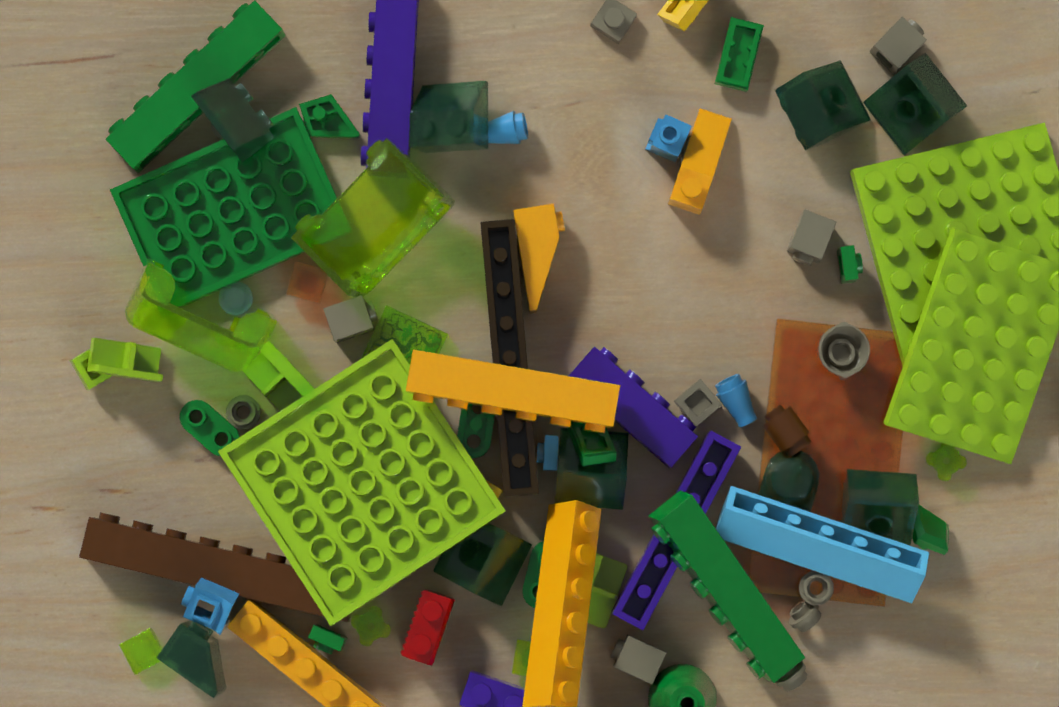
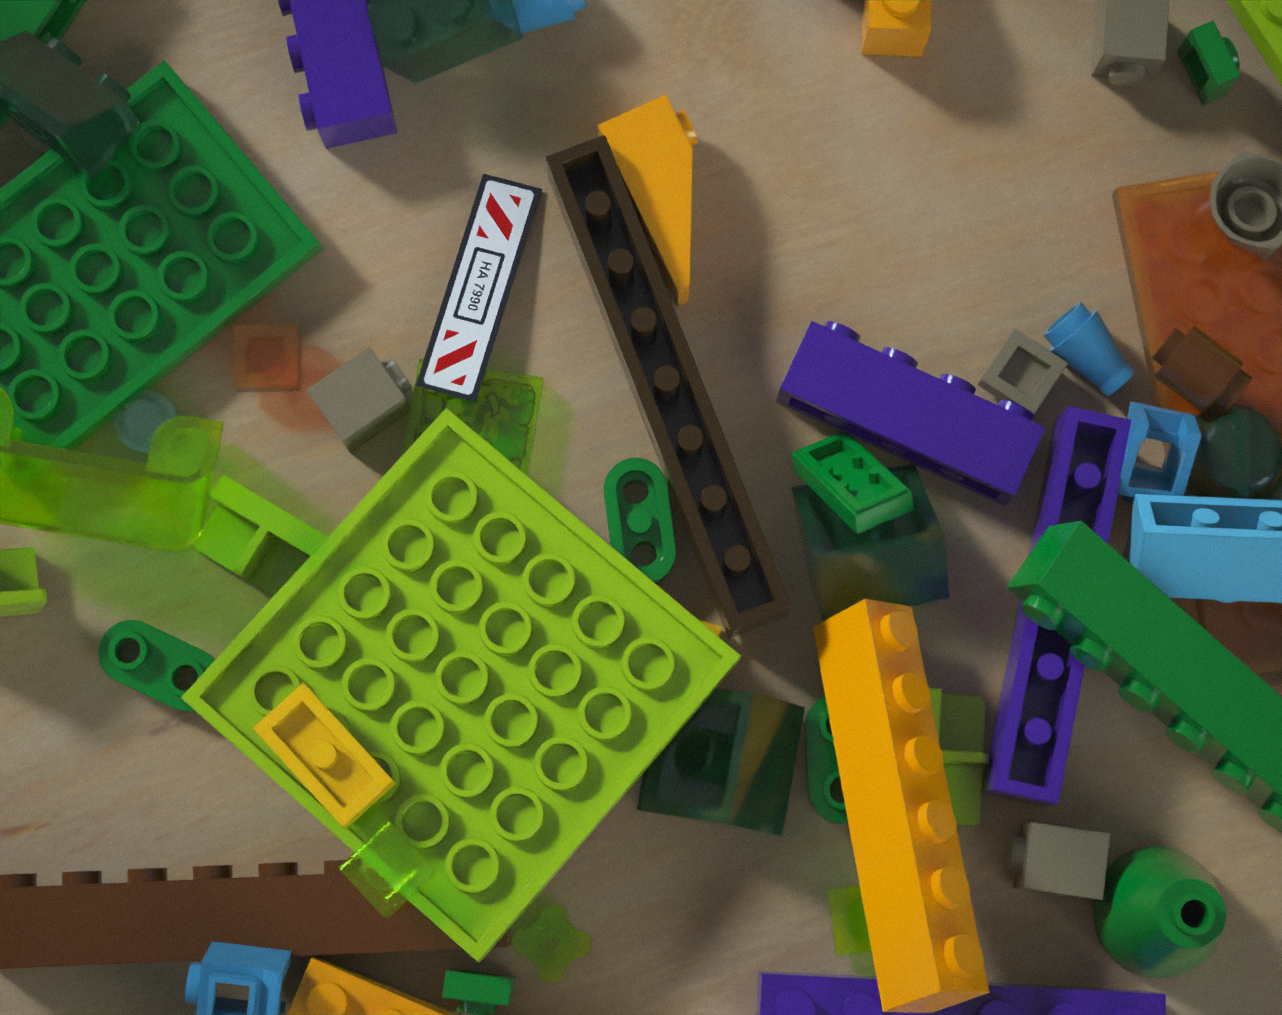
camera: 15 degrees left, 5 degrees down
(232, 412) = (197, 609): dark tan plate -> none
(282, 502) = (324, 756): none -> yellow plate
(298, 568) = (387, 870): none -> clear neon green plate
(327, 119) = (227, 70): green piece -> none
(374, 220) = (358, 205): clear neon green windscreen -> none
(427, 627) = (658, 914): red brick -> none
(428, 275) = (478, 288): none -> sticker
(512, 389) = (692, 429): light orange brick -> none
(548, 453) = (786, 535): dark azure plate -> none
(743, 478) = (1167, 426): none -> dark azure window

